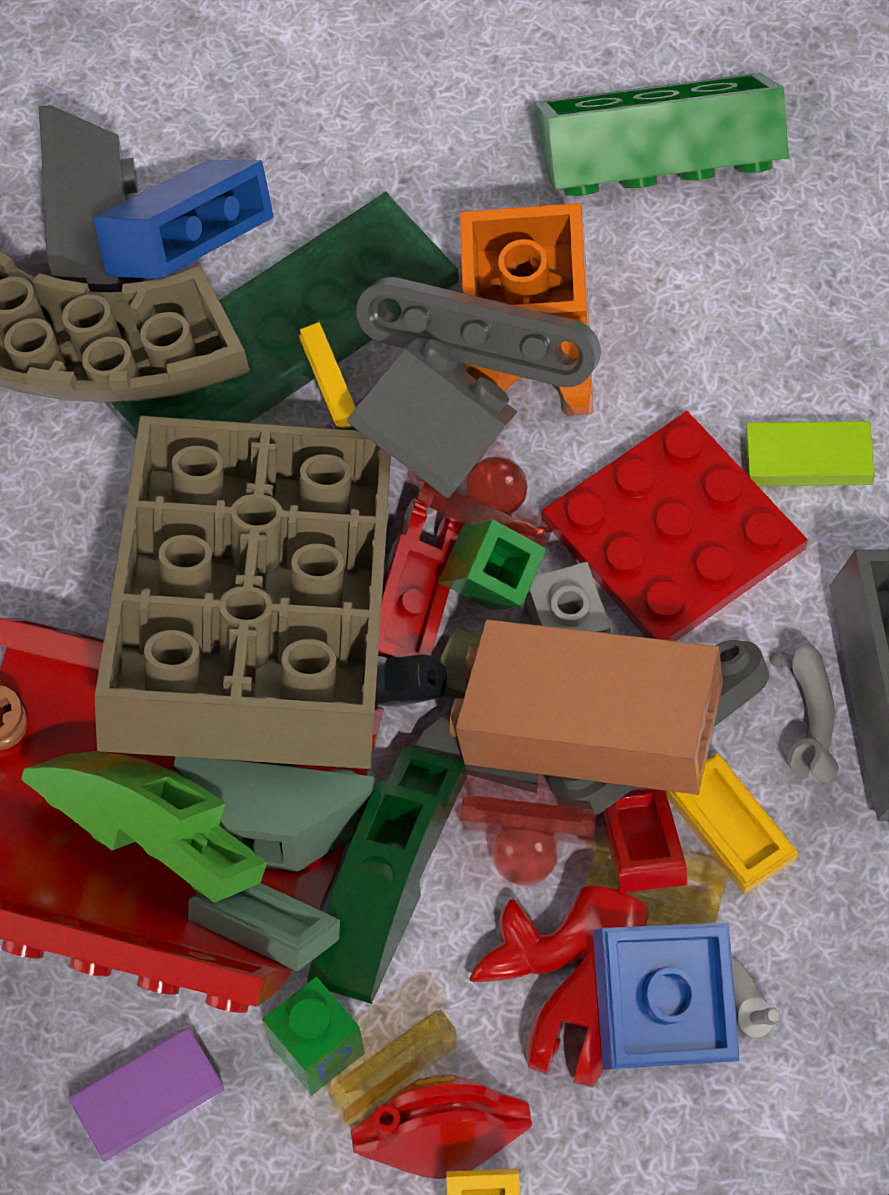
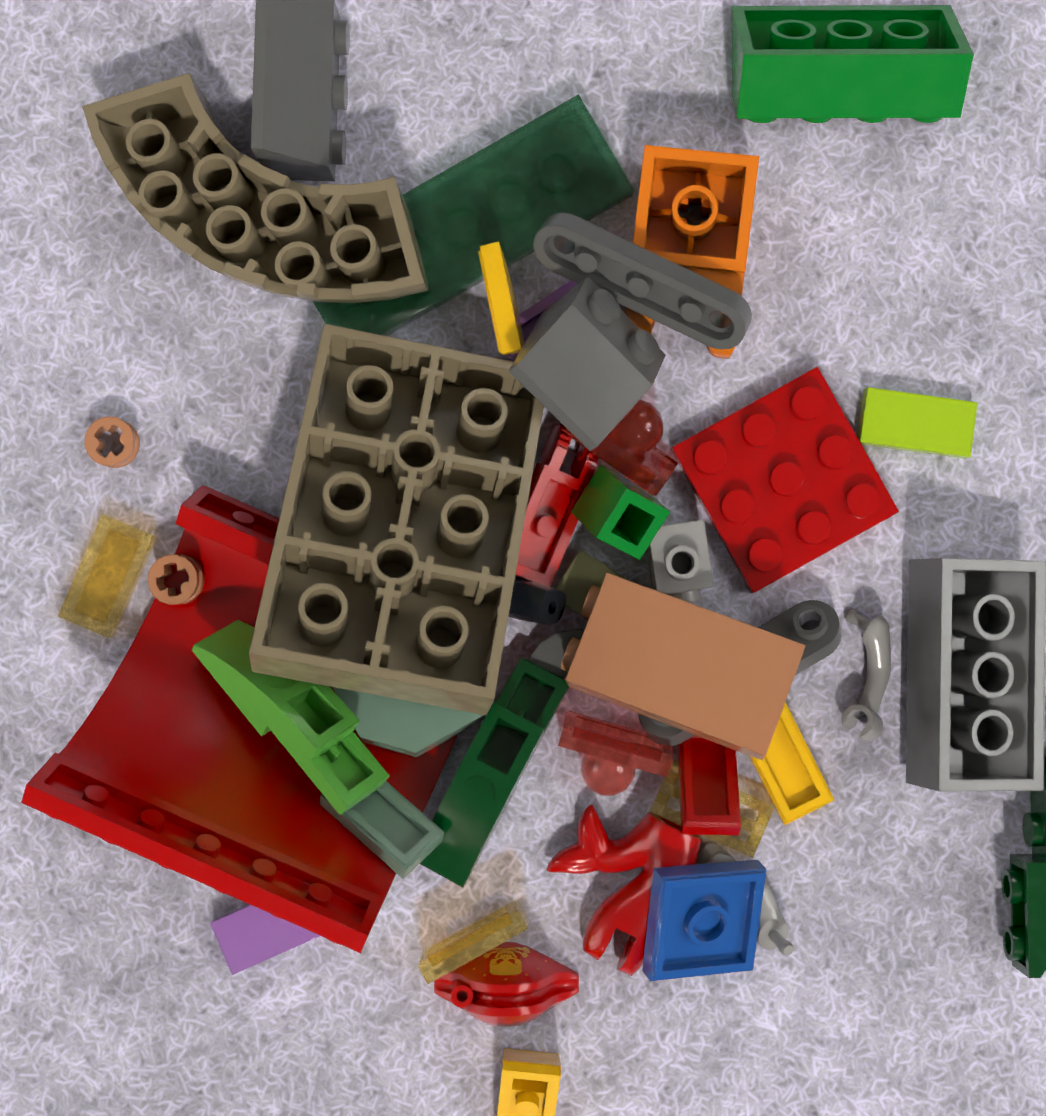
camera: 10 degrees right, 25 degrees up
(183, 218) = (385, 110): blue brick -> none
(314, 1035) = (414, 909): green brick -> none

